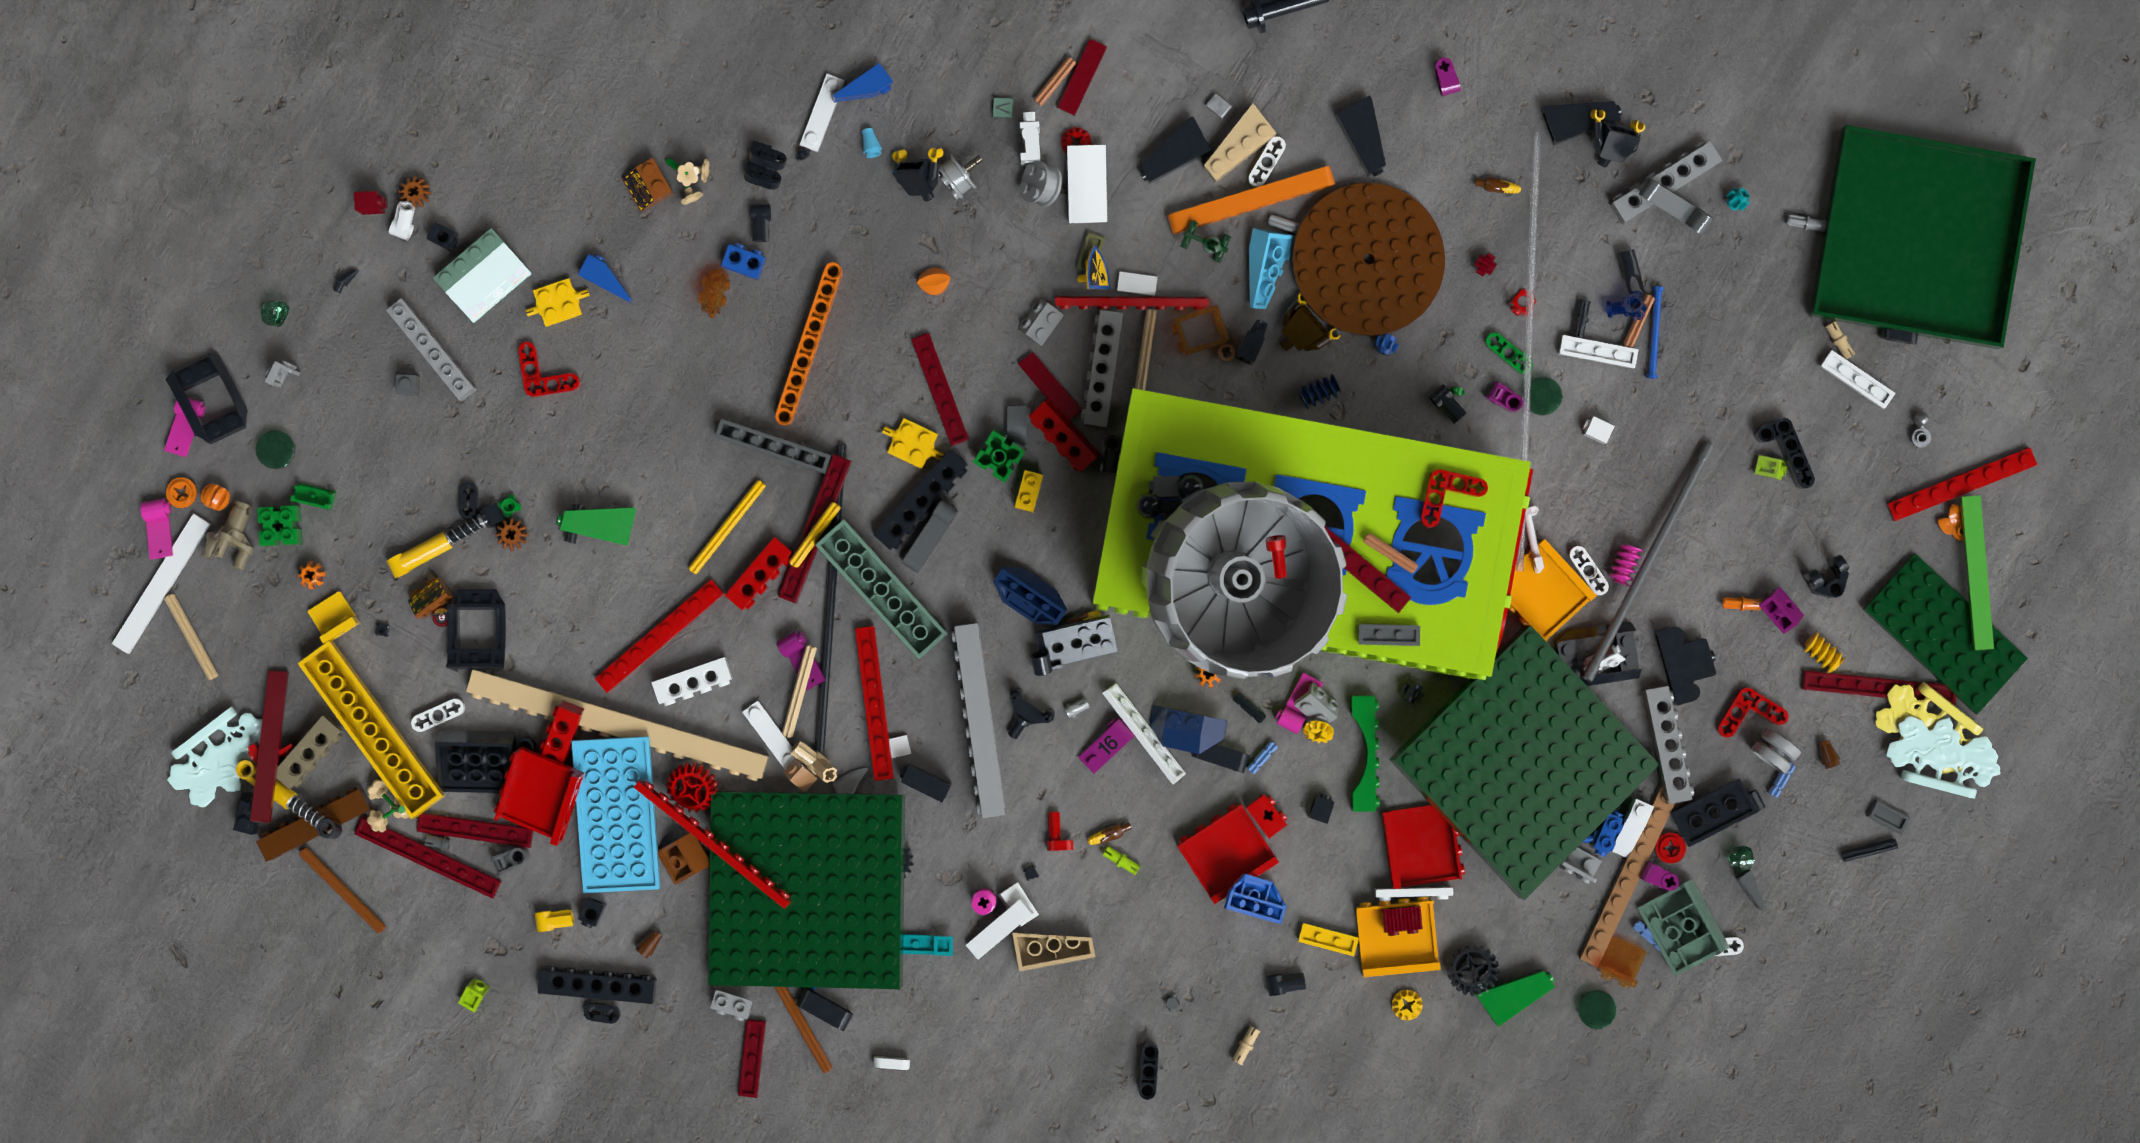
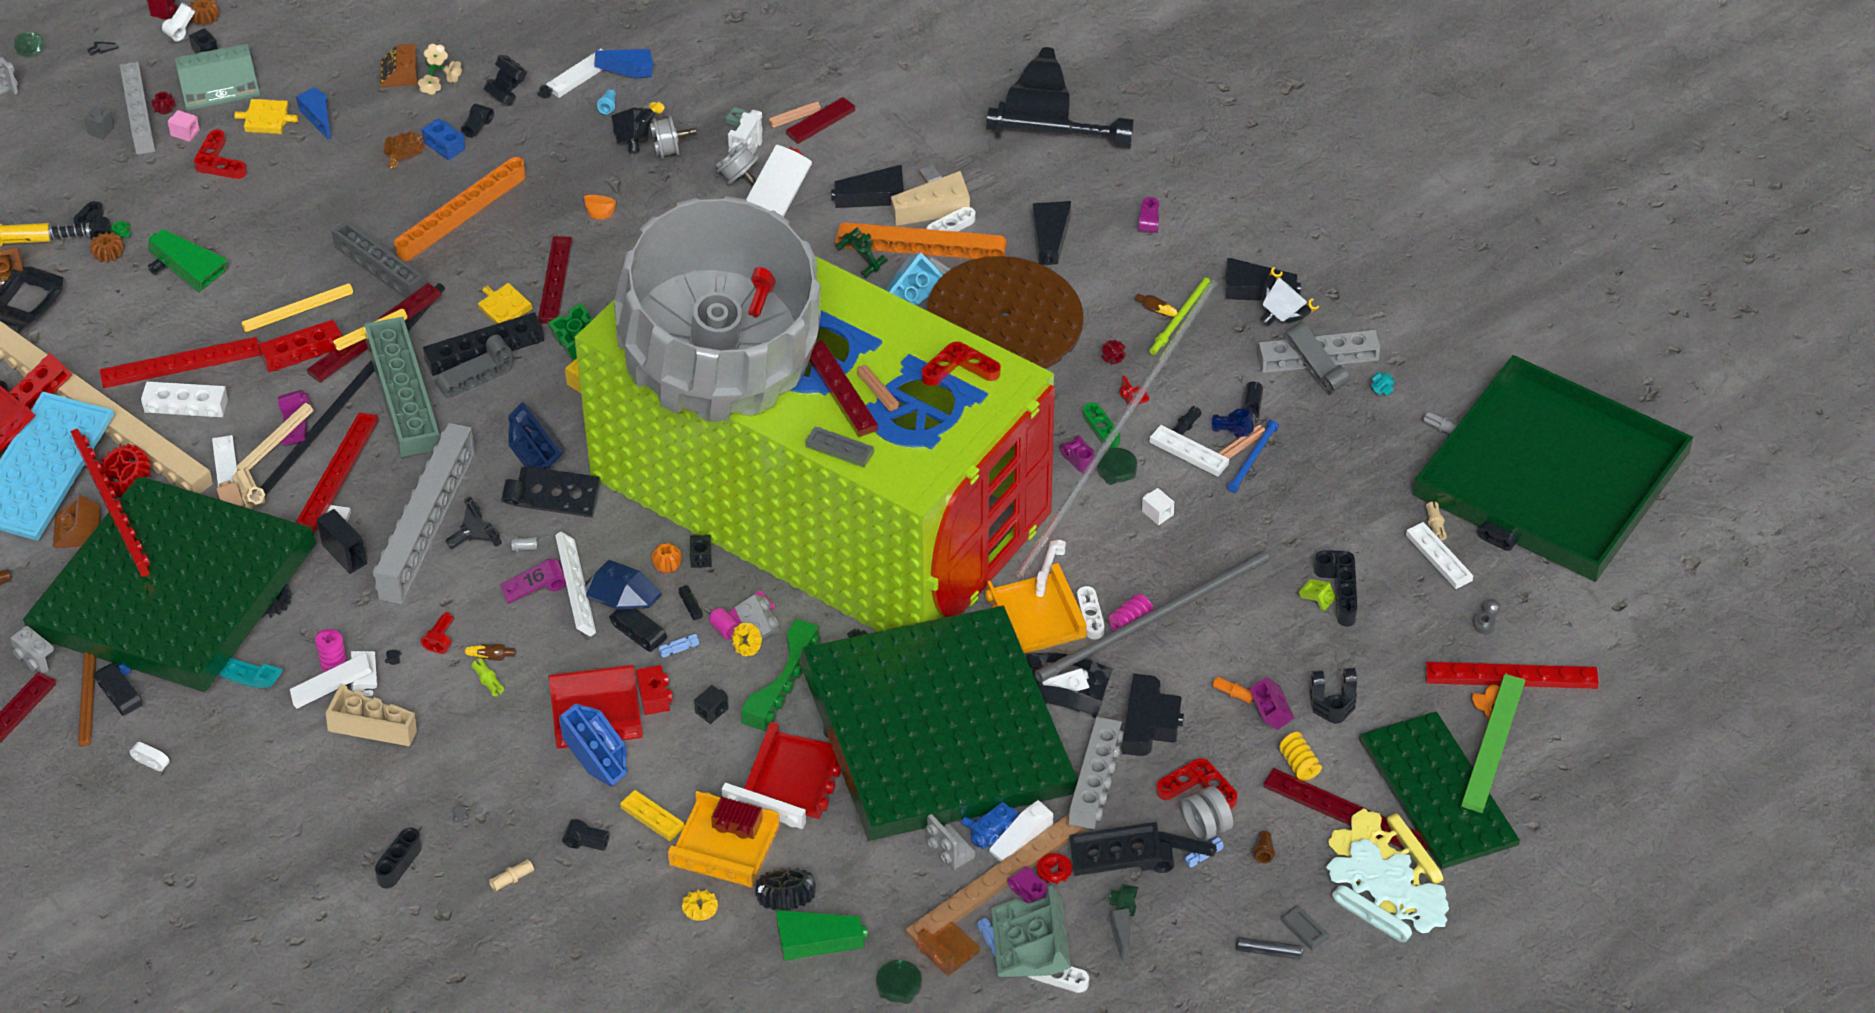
camera: 20 degrees right, 40 degrees down
(449, 326) = (163, 103): none -> dark red gear
(488, 352) = (183, 125): none -> bright pink brick
(1519, 225) = (1162, 338): none -> lime bar
(1767, 782) = (1188, 844): none -> black axle

